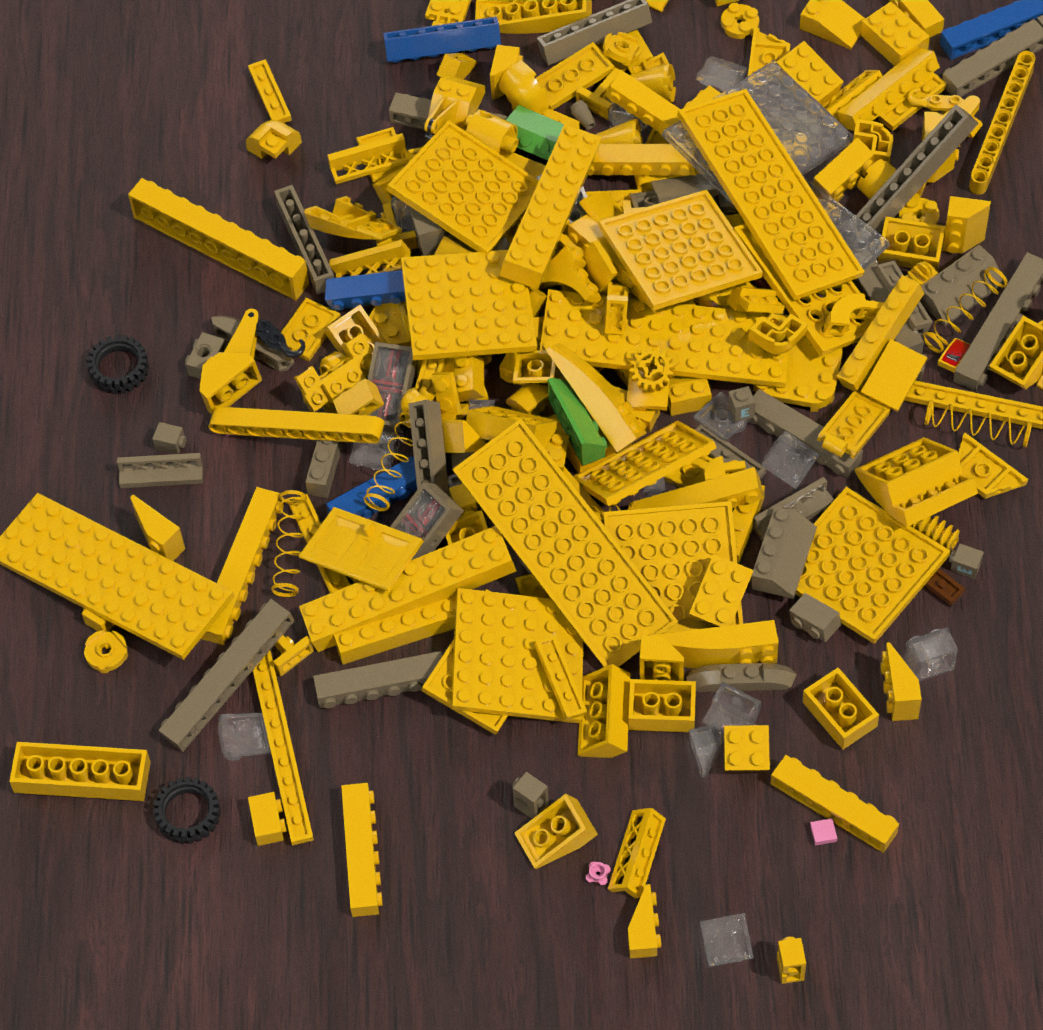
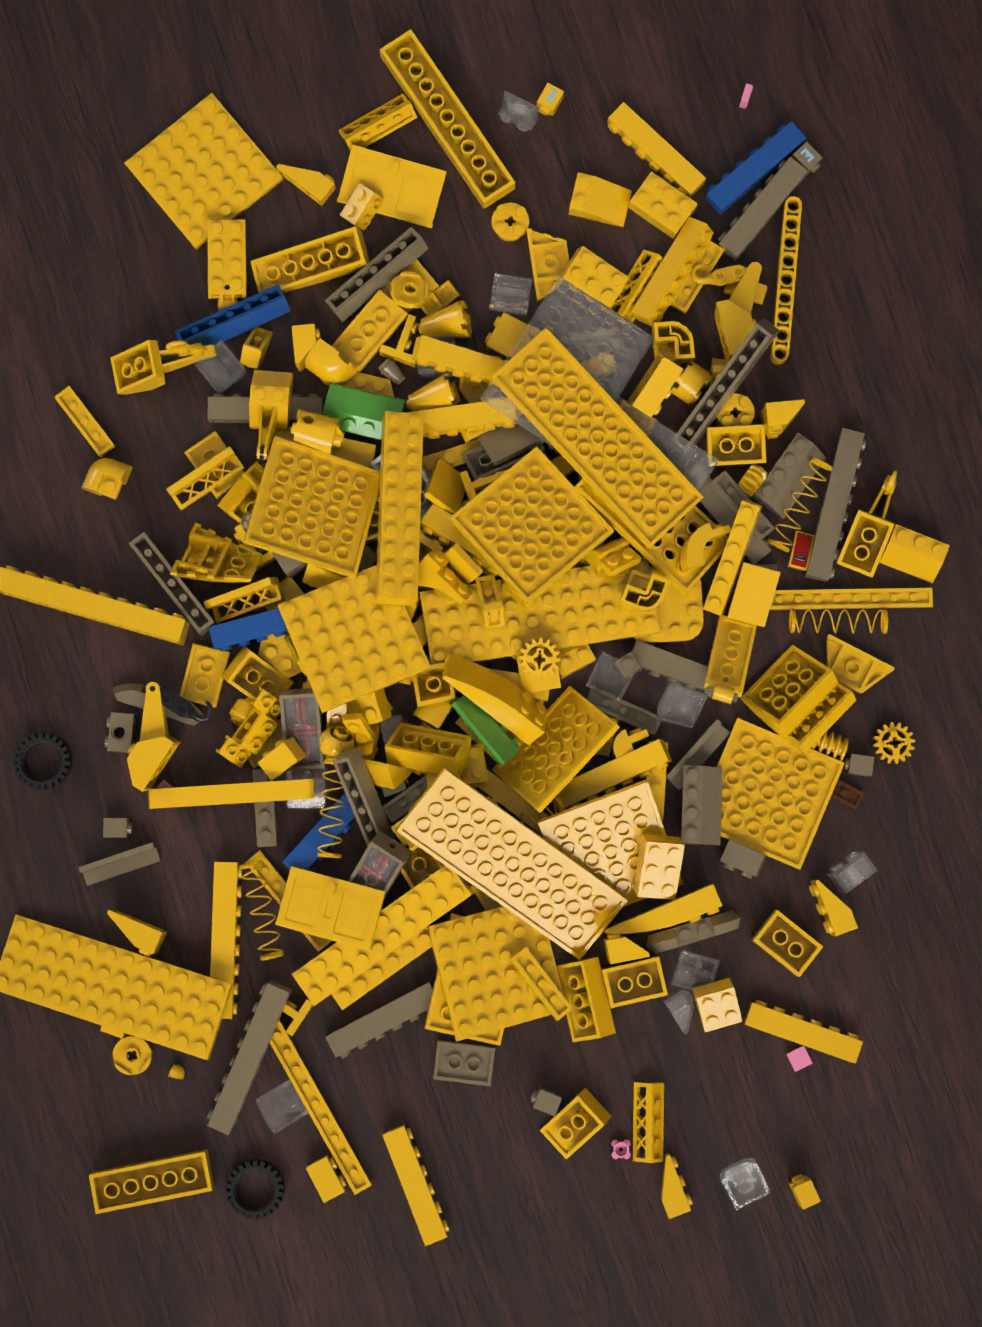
camera: 20 degrees left, 25 degrees up
(145, 679) = (176, 1072): none -> yellow hinge
(344, 53) = (142, 369): none -> yellow slope
(418, 74) = (222, 369): none -> clear brick
(453, 746) = (464, 1063): none -> dark tan tile
(1009, 549) = (893, 734): none -> yellow gear

